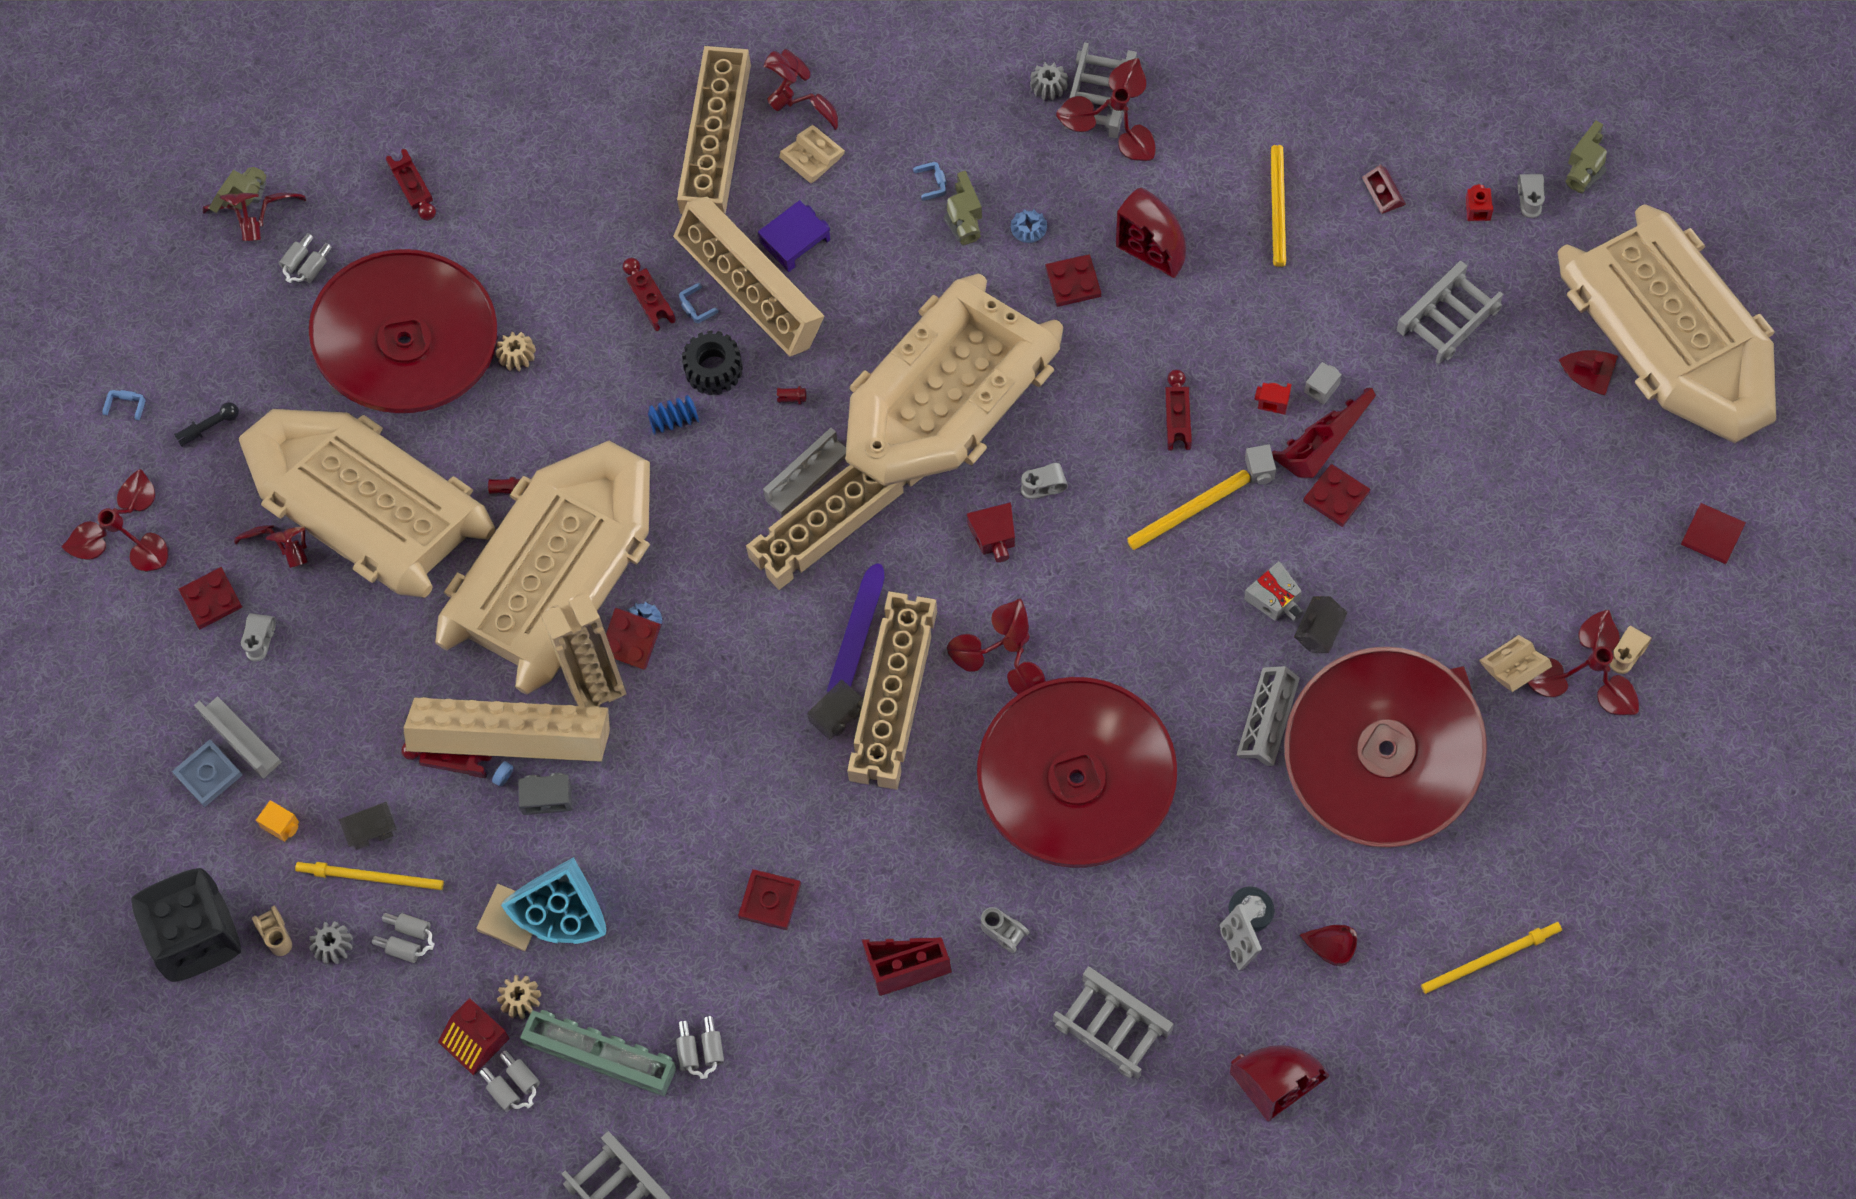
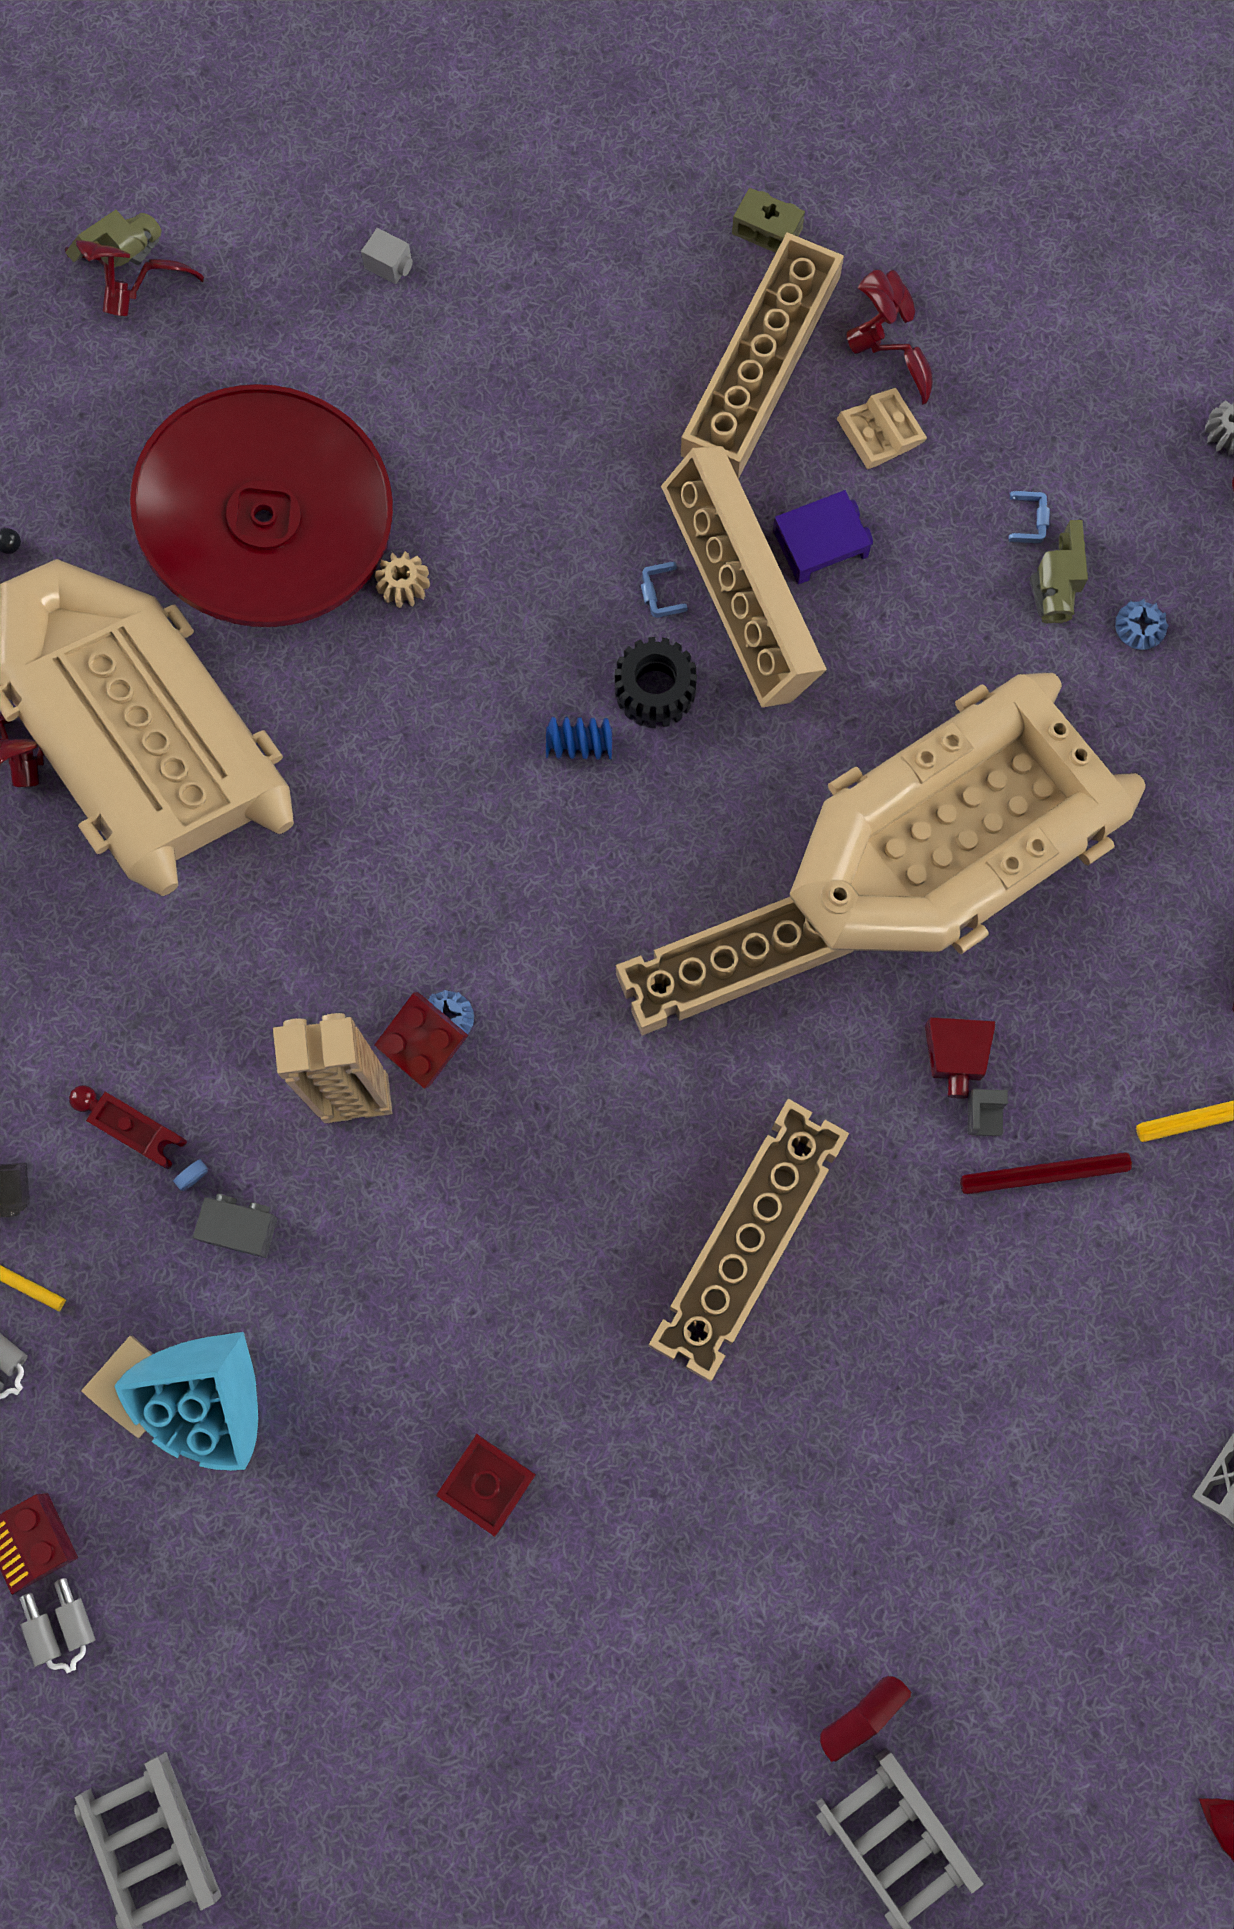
camera: 15 degrees right, 10 degrees up
(310, 267) = (178, 374): light grey piece -> none
(412, 185) = (344, 305): dark red plate -> none
(431, 144) = (387, 256): none -> light grey brick
(502, 485) = (337, 767): dark red pin -> none
(507, 729) = (214, 1118): tan brick -> none
(511, 992) = (111, 1521): tan gear -> none
(558, 541) = (354, 892): tan piece -> none
(598, 1053) = (185, 1630): sand green piece -> none
(647, 293) = (601, 554): dark red plate -> none
(687, 42) = (766, 220): none -> olive brick
(711, 1047) = (339, 1672): light grey piece -> none
(792, 395) = (747, 762): dark red pin -> none
(805, 472) = (730, 880): light grey fence -> none
(836, 710) = (662, 1242): clear smoke brick -> none
(858, 626) = (727, 1132): dark purple piece -> none
(905, 963) = (639, 1651): dark red wedge -> none
(1006, 932) = (791, 1650): light grey piece -> none
(1012, 622) = (943, 1219): dark red plant -> none
(1024, 562) = (986, 1112): none -> dark grey panel
(1044, 481) = (1054, 1002): light grey piece -> none
(1063, 952) = (865, 1718): none -> dark red brick
(1073, 280) = (1178, 722): dark red plate -> none
(1078, 588) = (1046, 1173): none -> dark red axle
(1084, 730) = (1032, 1473): dark red dish -> none
(1248, 913) = (1140, 1748): light grey plate -> none

